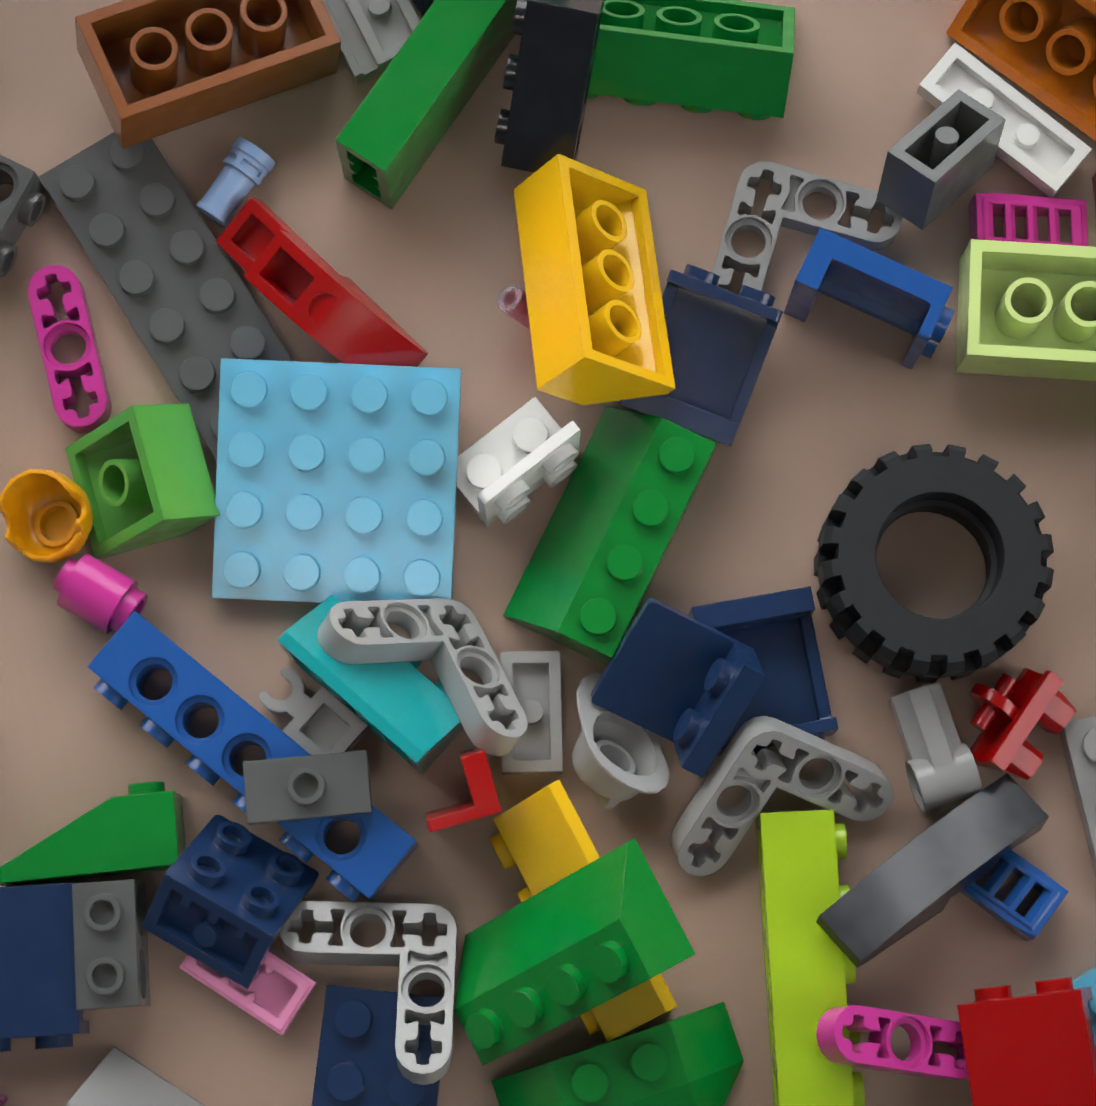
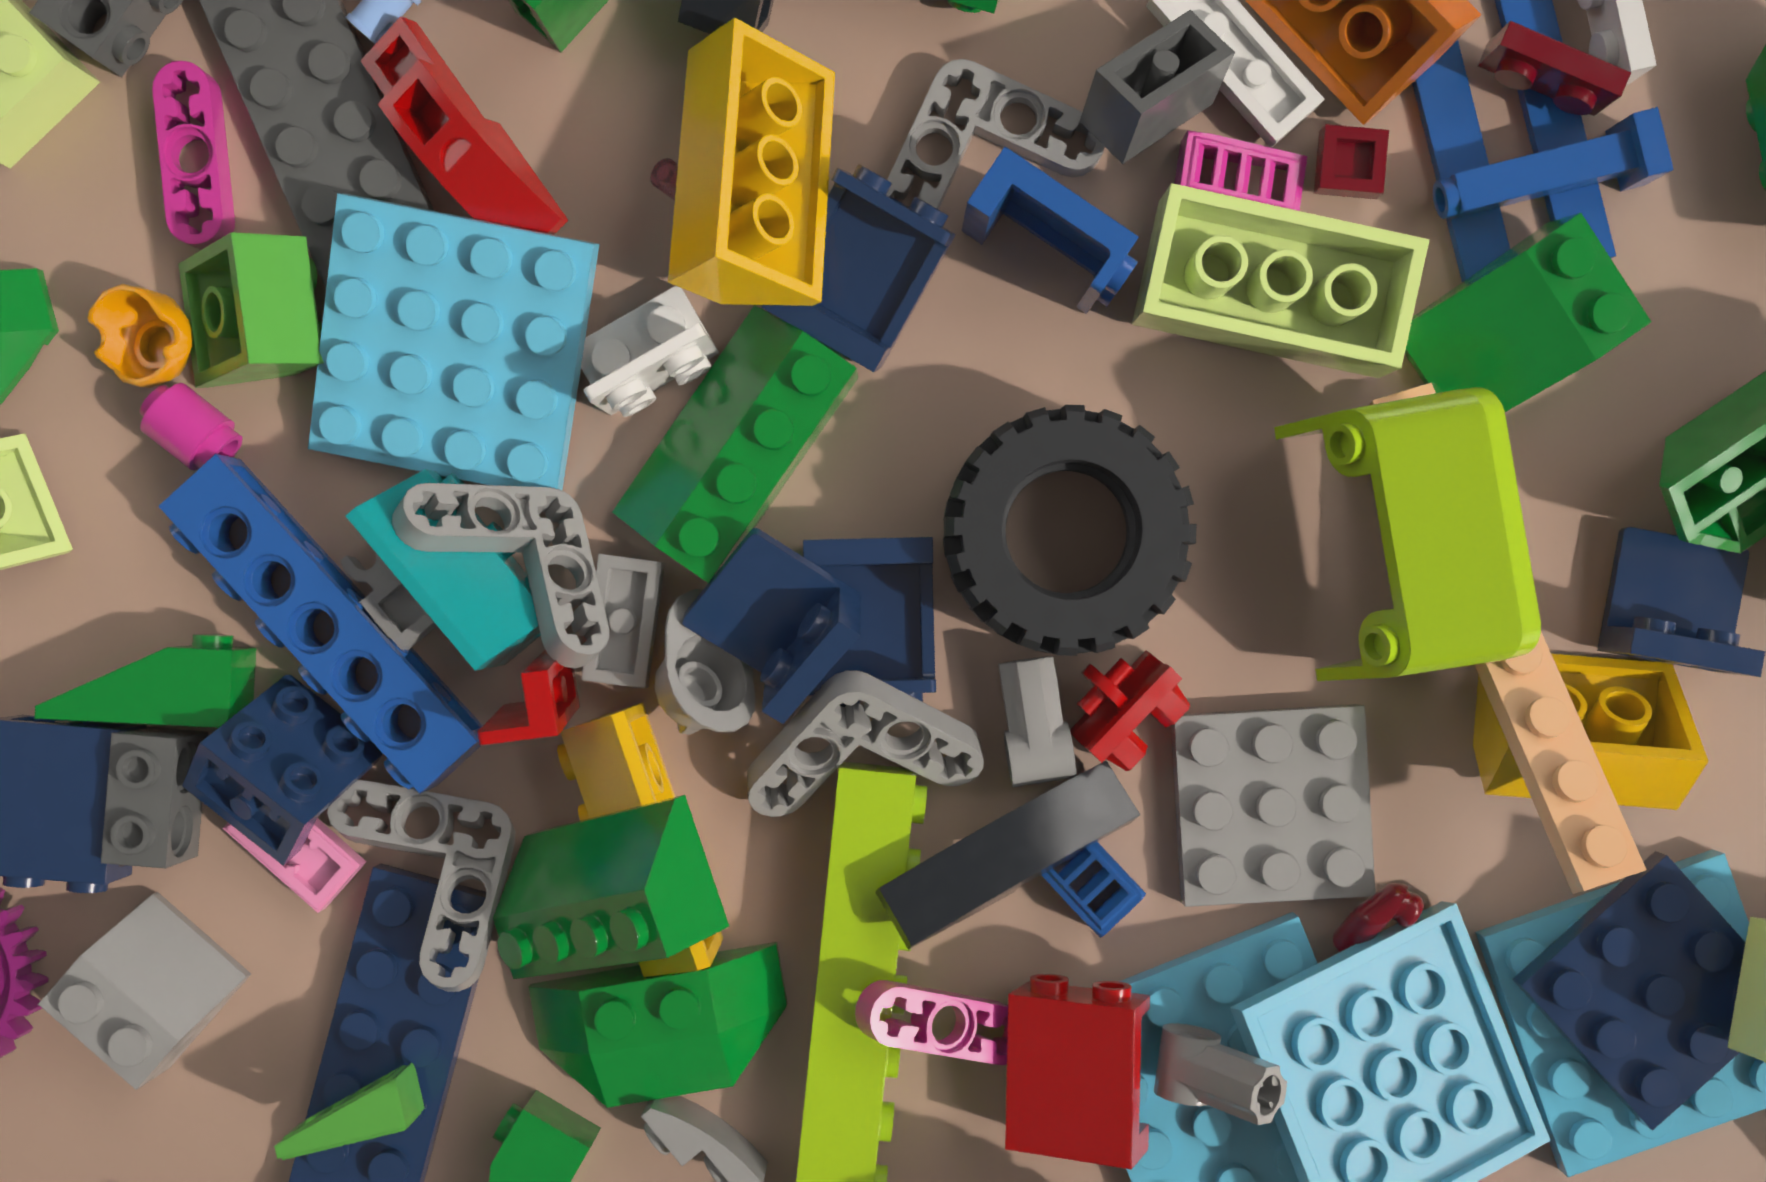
camera: 10 degrees right, 10 degrees up
(307, 787) = (368, 671): dark grey plate -> none

